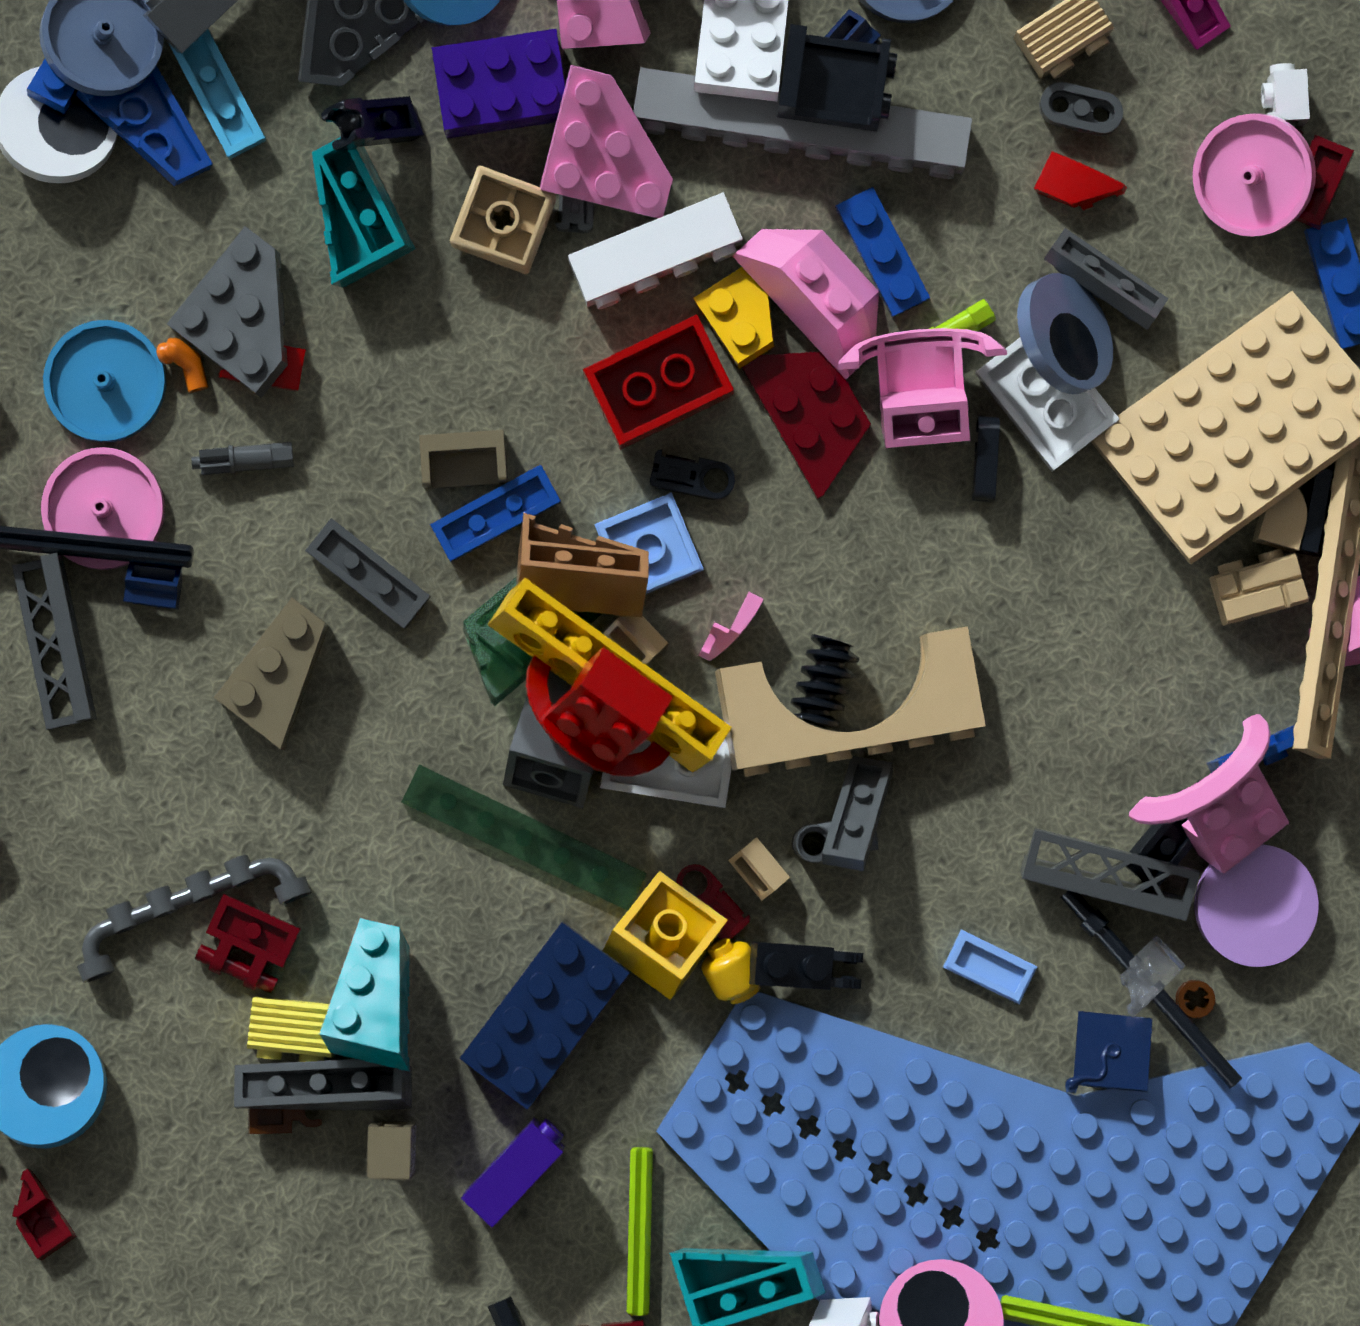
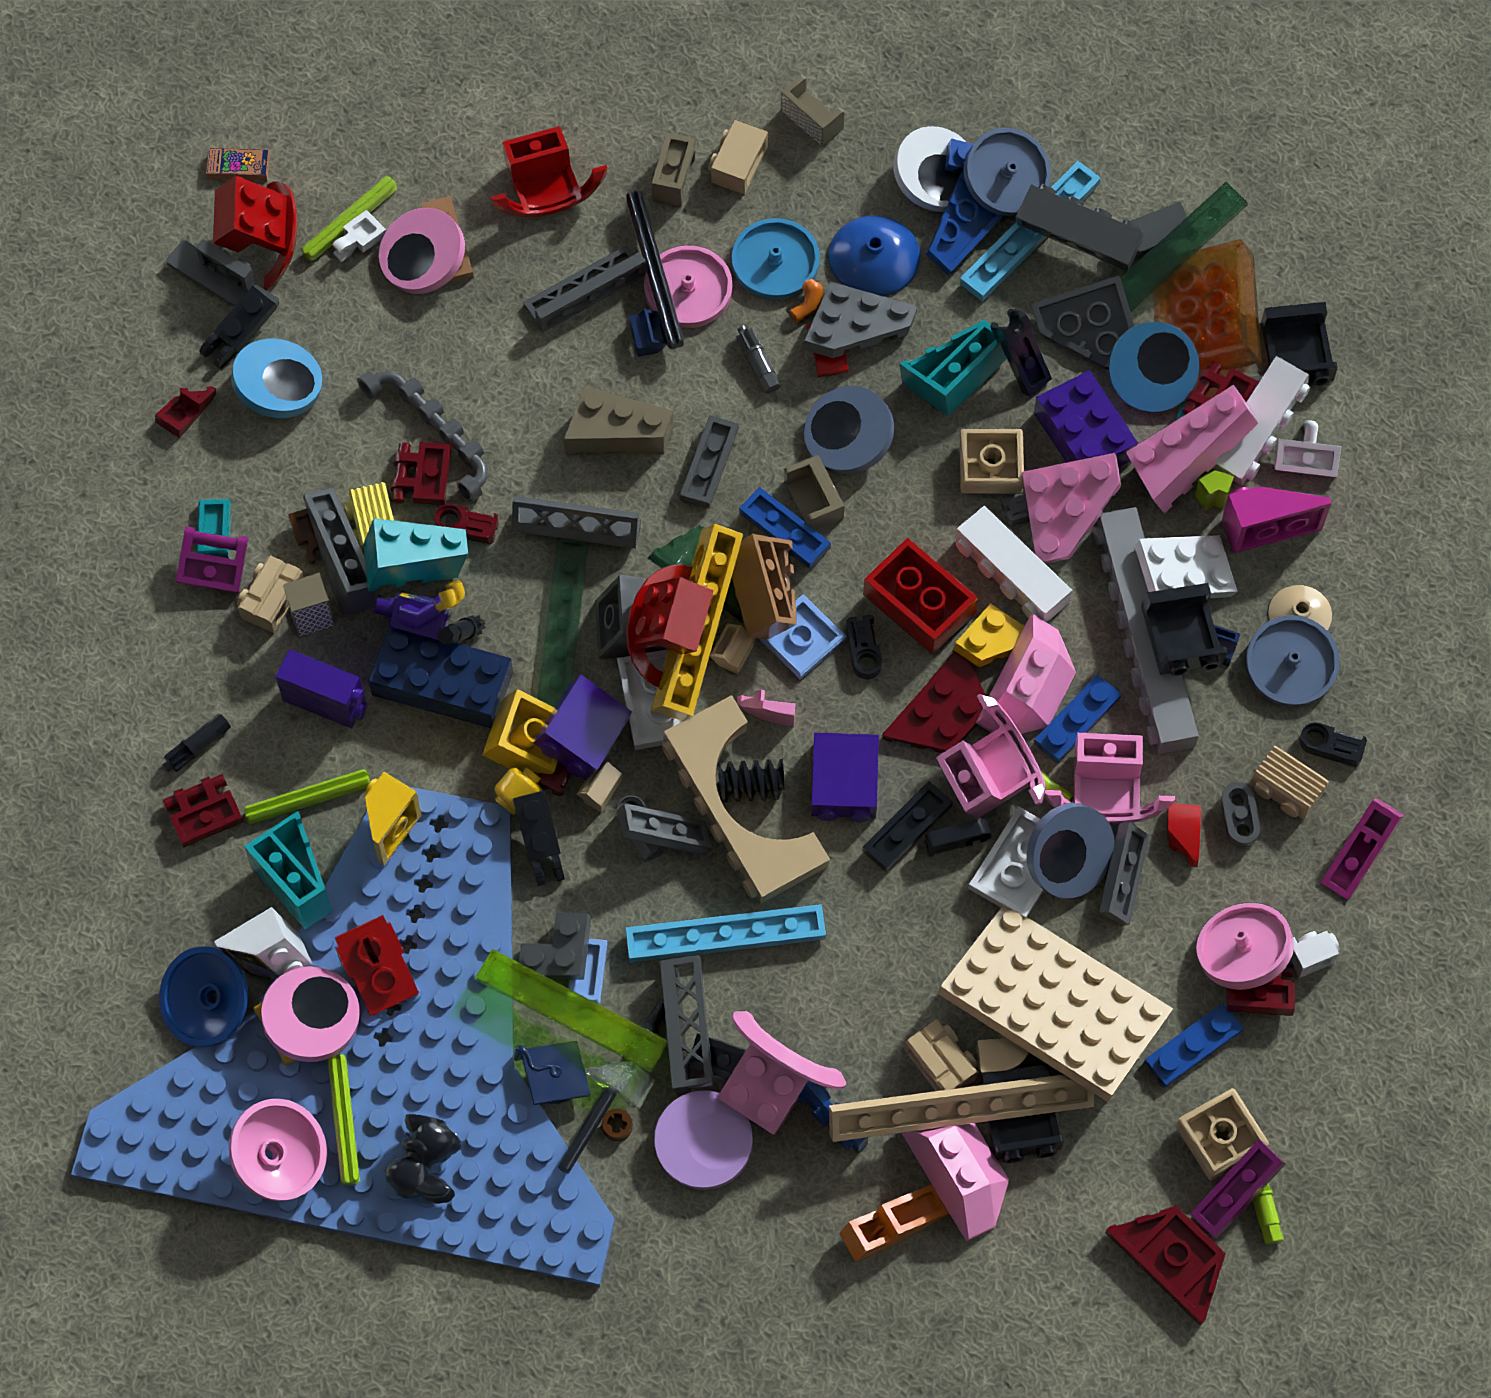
camera: 75 degrees right, 20 degrees down
(163, 275) = (874, 269): none -> blue dish
(226, 1233) = (214, 518): none -> teal tile
(288, 1256) = (211, 570): none -> magenta plate
(342, 907) = (478, 526): none -> dark red piece
(344, 1186) = (266, 600): none -> tan brick
(393, 382) = (849, 429): none -> sand blue piece
(394, 773) = (575, 522): none -> dark grey fence
(458, 1008) = (420, 613): none -> dark purple torso
(499, 971) = (463, 629): none -> black piece
(686, 866) = (582, 727): none -> dark purple brick
(723, 1146) = (391, 813): none -> yellow slope
(860, 566) = (845, 776): none -> dark purple brick
(906, 1222) = (376, 964): none -> red piece
(949, 514) = (907, 826): none -> black plate
(967, 989) = (568, 952): none -> dark grey plate
(988, 251) = (1109, 778): none -> bright pink piece
(1006, 784) = (725, 933): none -> medium azure plate
(1046, 1006) = (571, 1010): none -> clear neon green plate
(1159, 1238) = (428, 1146): none -> black animal

